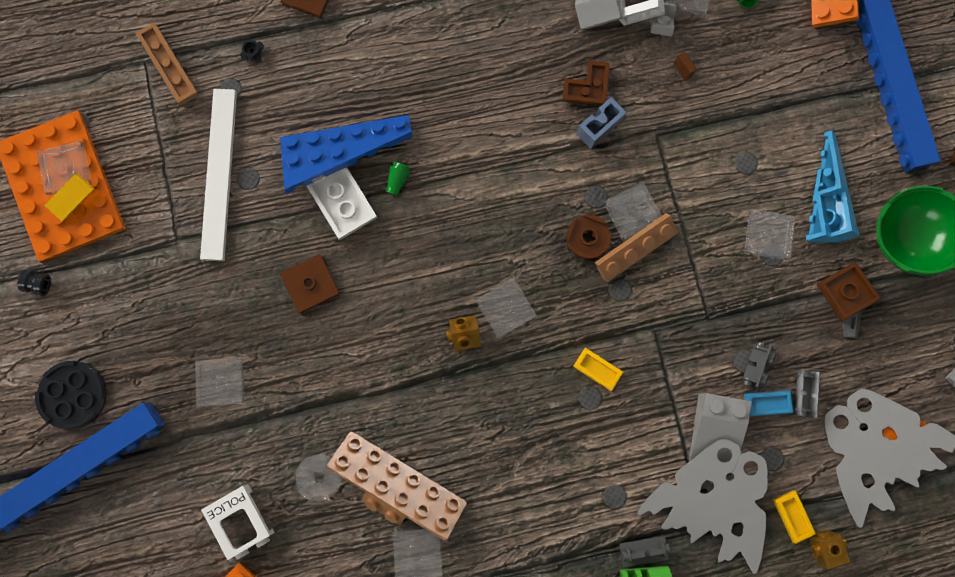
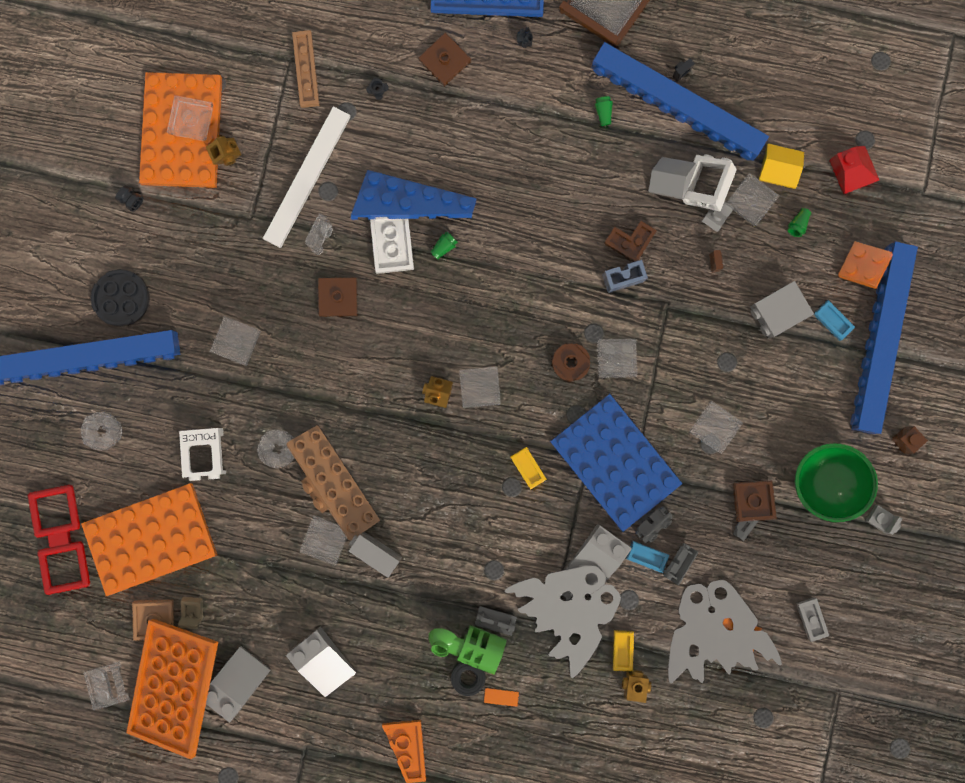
camera: 30 degrees right, 5 degrees up
(69, 197) = (184, 144): yellow tile -> none
(100, 546) = (93, 423): none -> clear plate
(116, 185) = (223, 151): none -> pearl gold brick
(258, 224) = (320, 230): none -> clear plate
(480, 541) = (374, 553): none -> light grey brick
(636, 247) = (604, 387): medium nougat plate -> none
(686, 320) = (616, 462): none -> blue plate
(775, 85) = (781, 310): none -> light grey brick
(831, 72) = (834, 320): none -> dark azure tile
(832, 211) = (776, 432): dark azure wedge -> none

